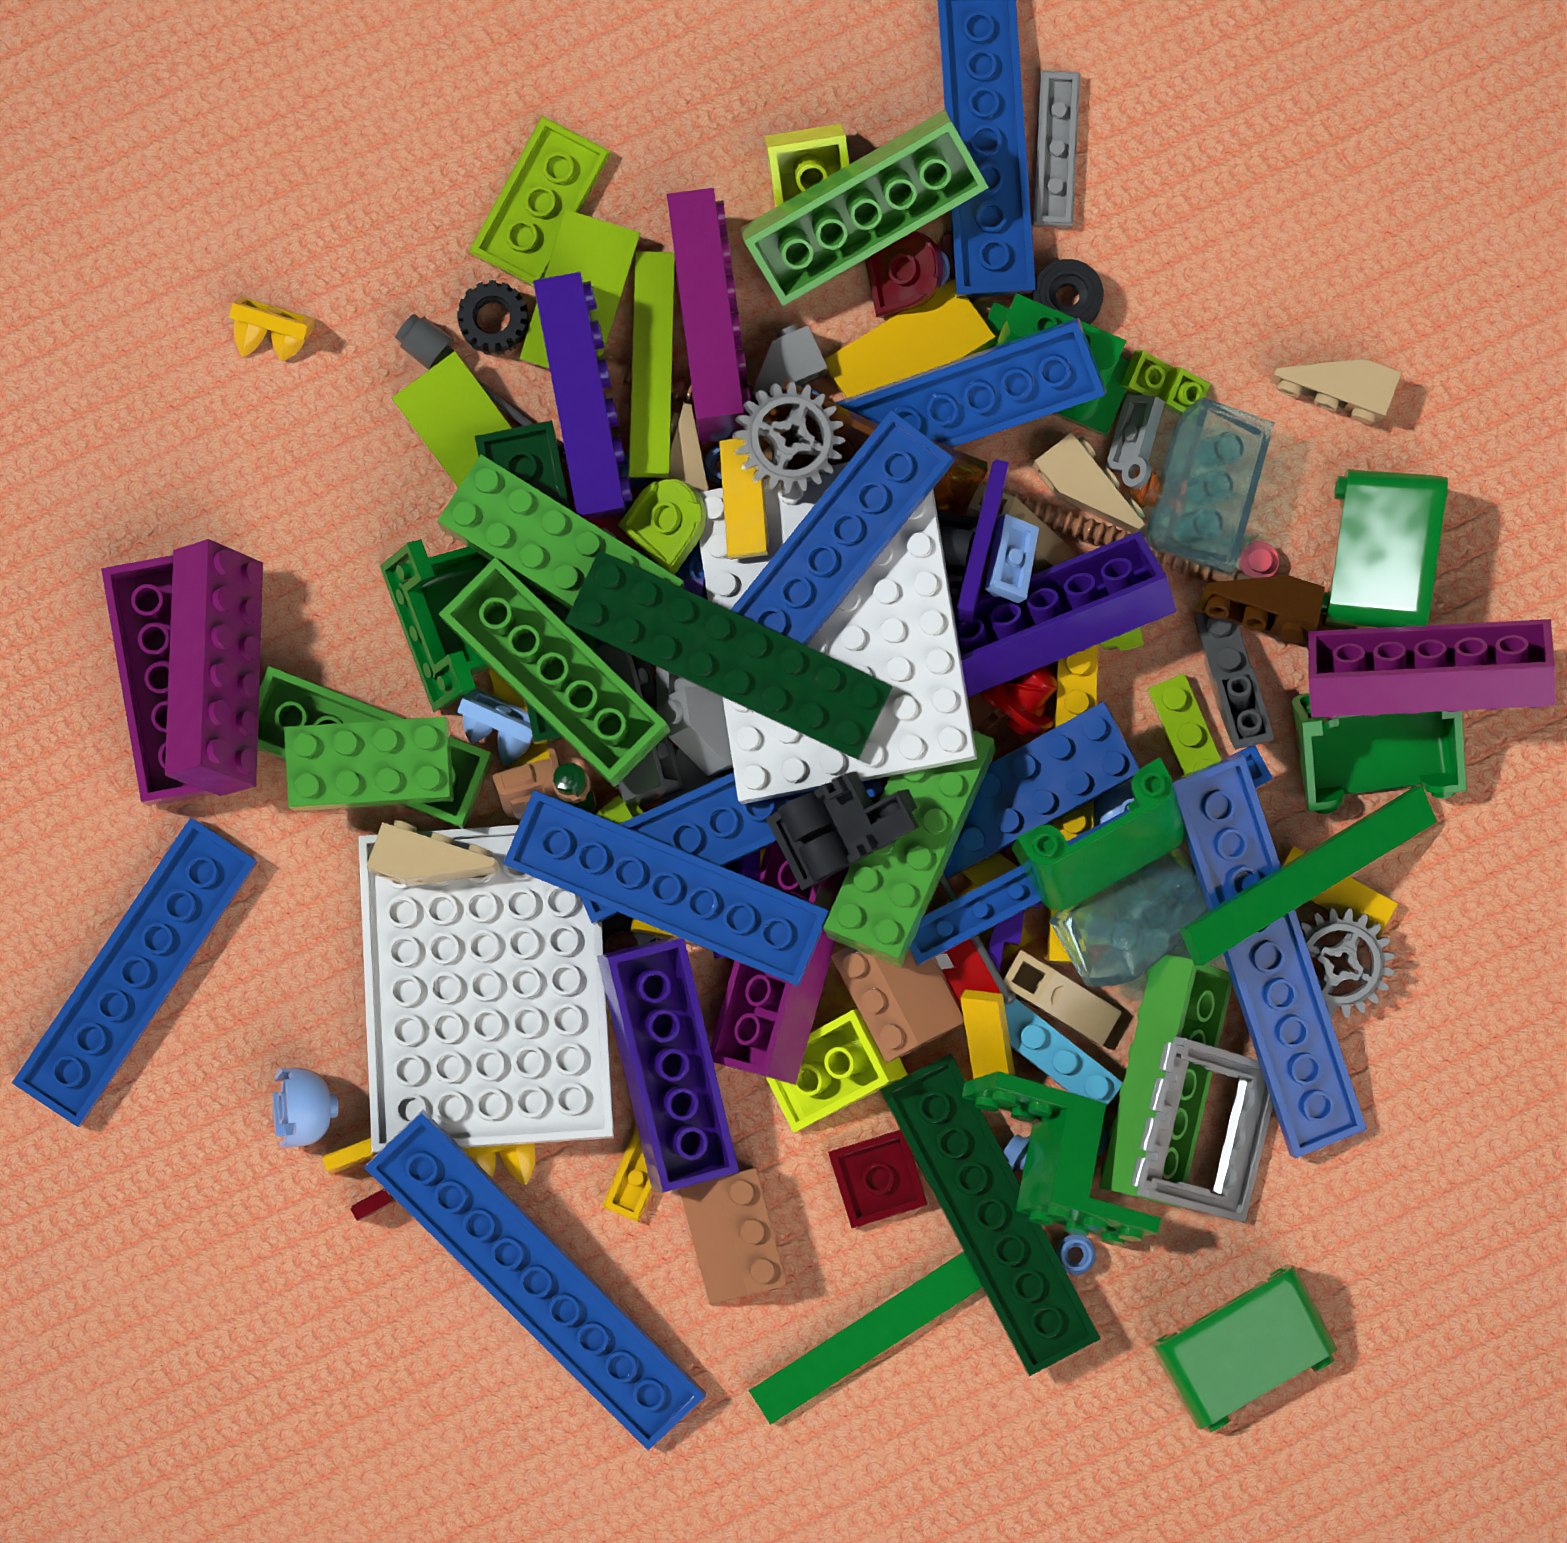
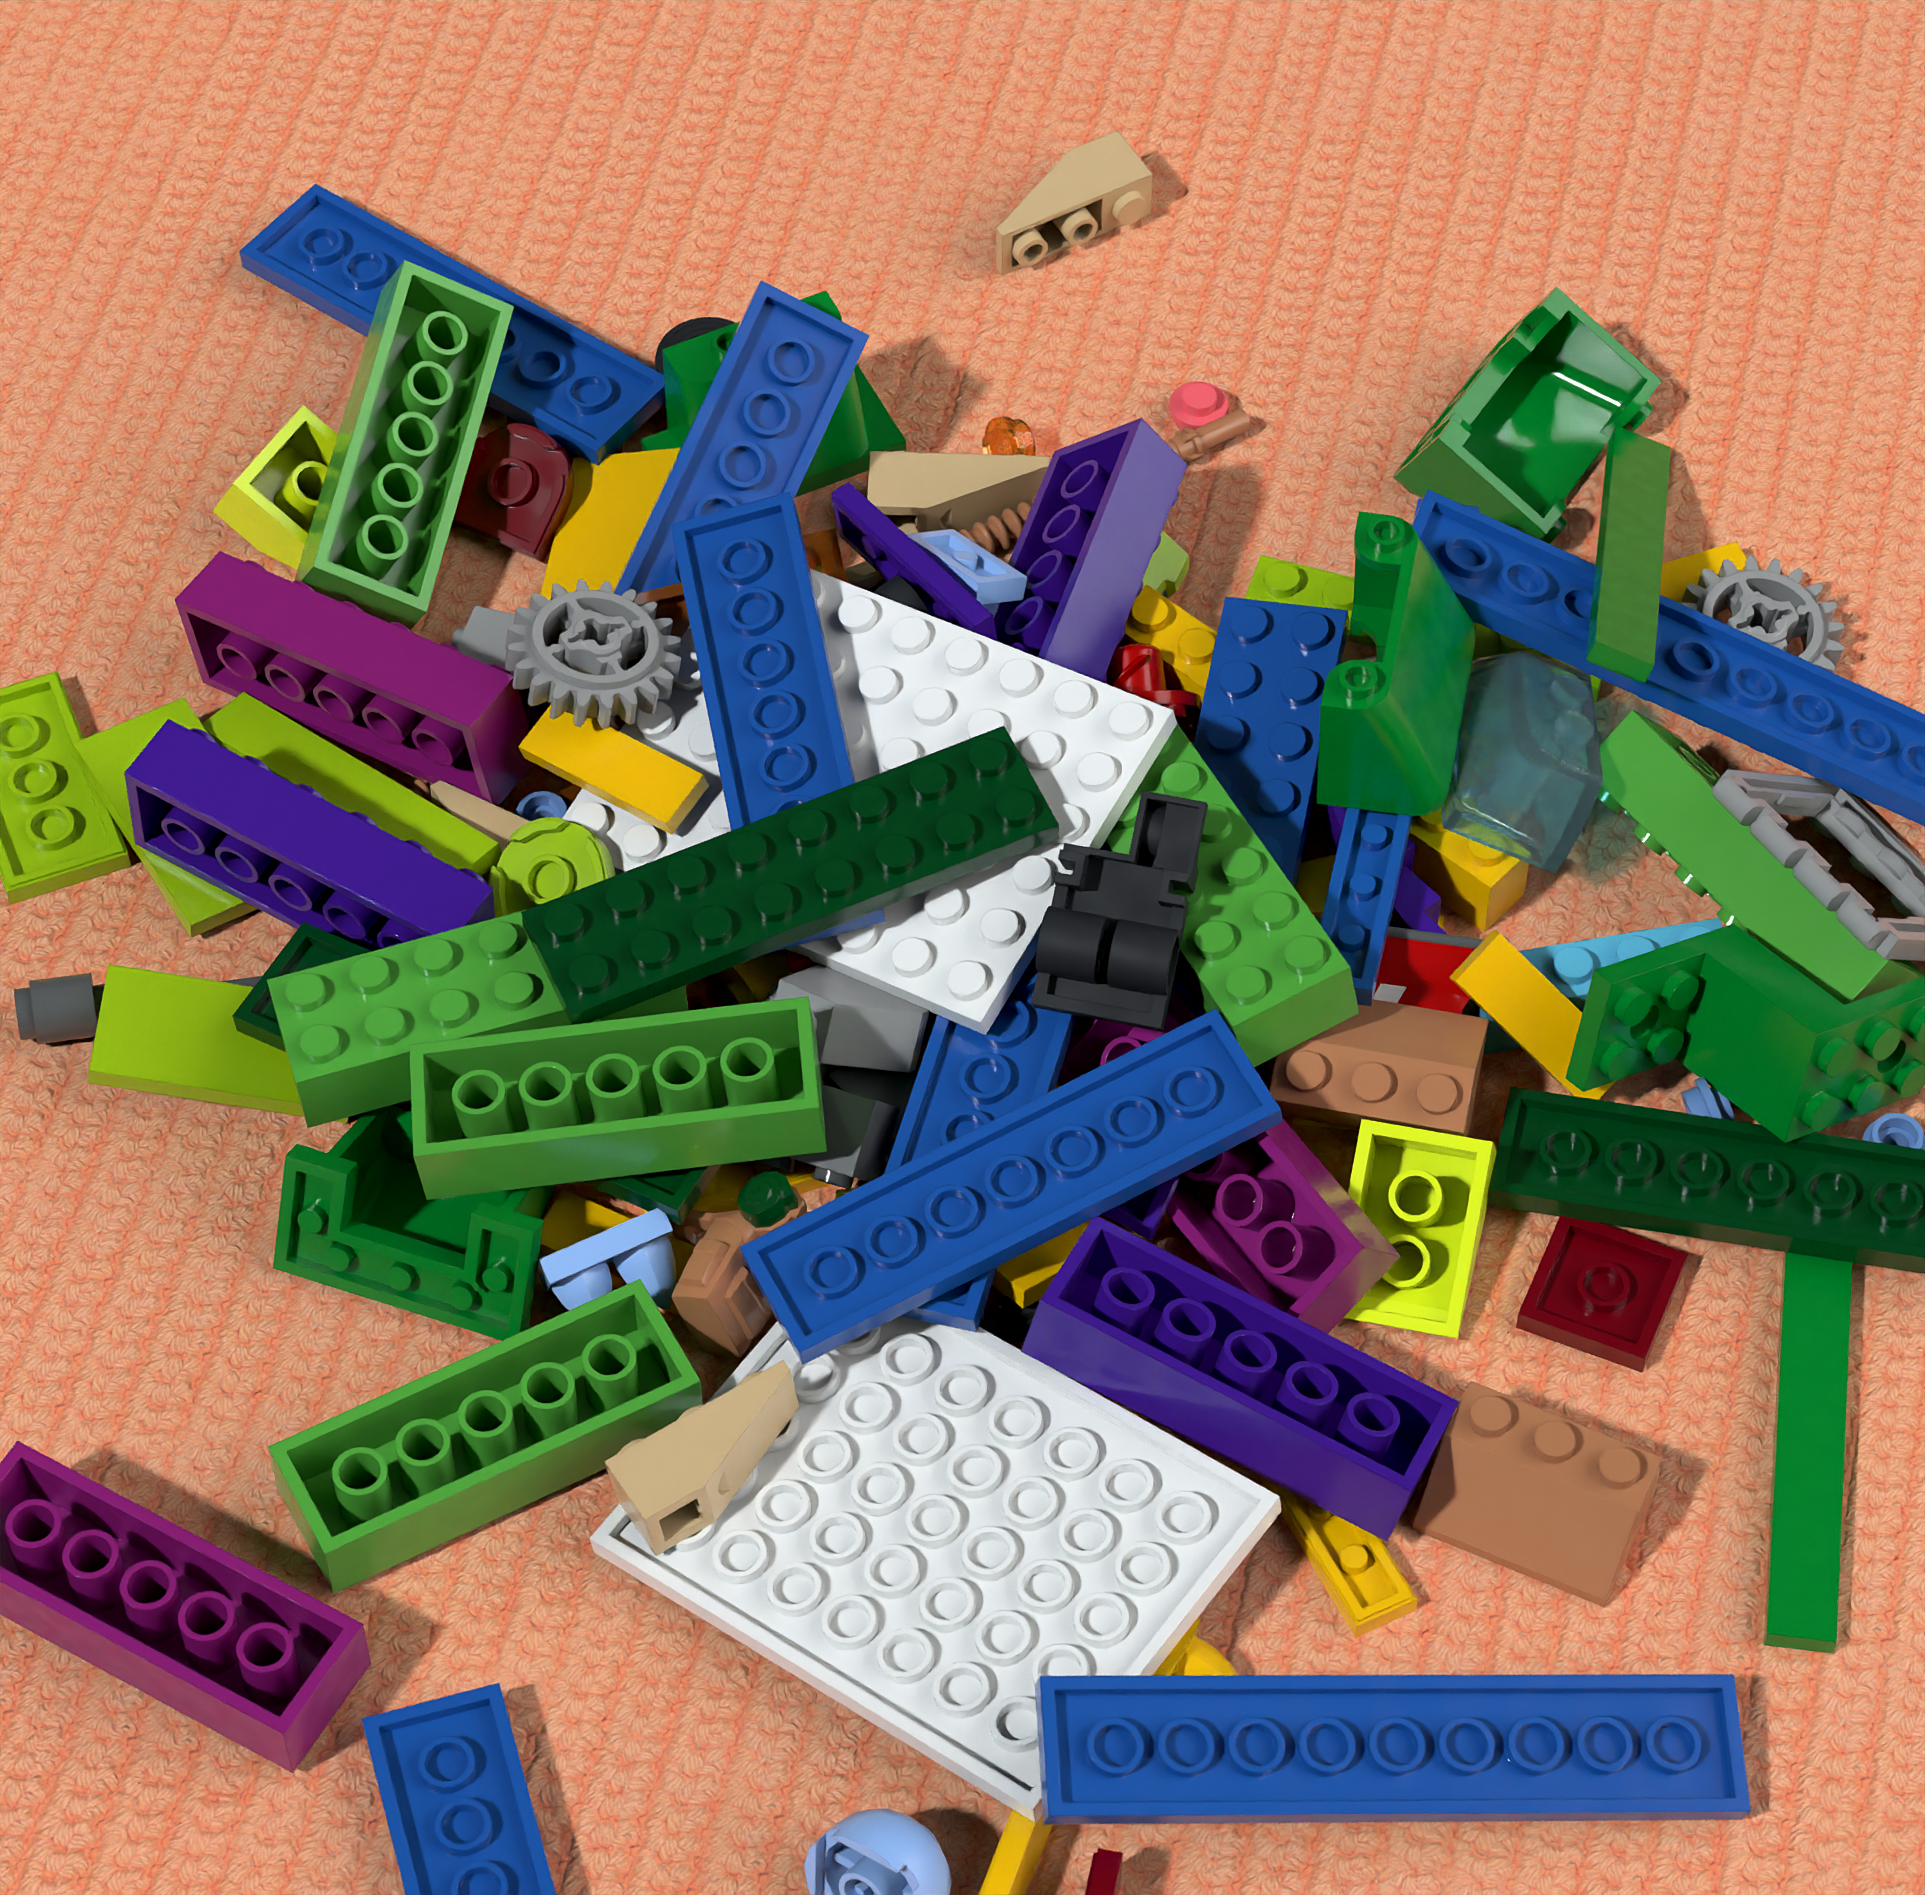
camera: 50 degrees left, 30 degrees down
(214, 668) = (209, 1494): magenta brick -> none
(368, 763) = (515, 1404): bright green brick -> none
(493, 293) = (104, 893): black tyre -> none
(1056, 149) = (515, 262): light grey tile -> none
(1060, 998) = (1543, 913): tan slope -> none
(1135, 438) = (936, 412): light grey hinge -> none
(1153, 377) = (913, 356): lime slope -> none
(1209, 484) = (1058, 360): clear light blue windscreen -> none
(1233, 682) = (1317, 504): dark grey slope -> none
(1266, 604) = (1260, 414): reddish brown slope -> none
(1385, 549) = (1319, 272): windscreen -> none
(1431, 668) = (1491, 283): magenta brick -> none

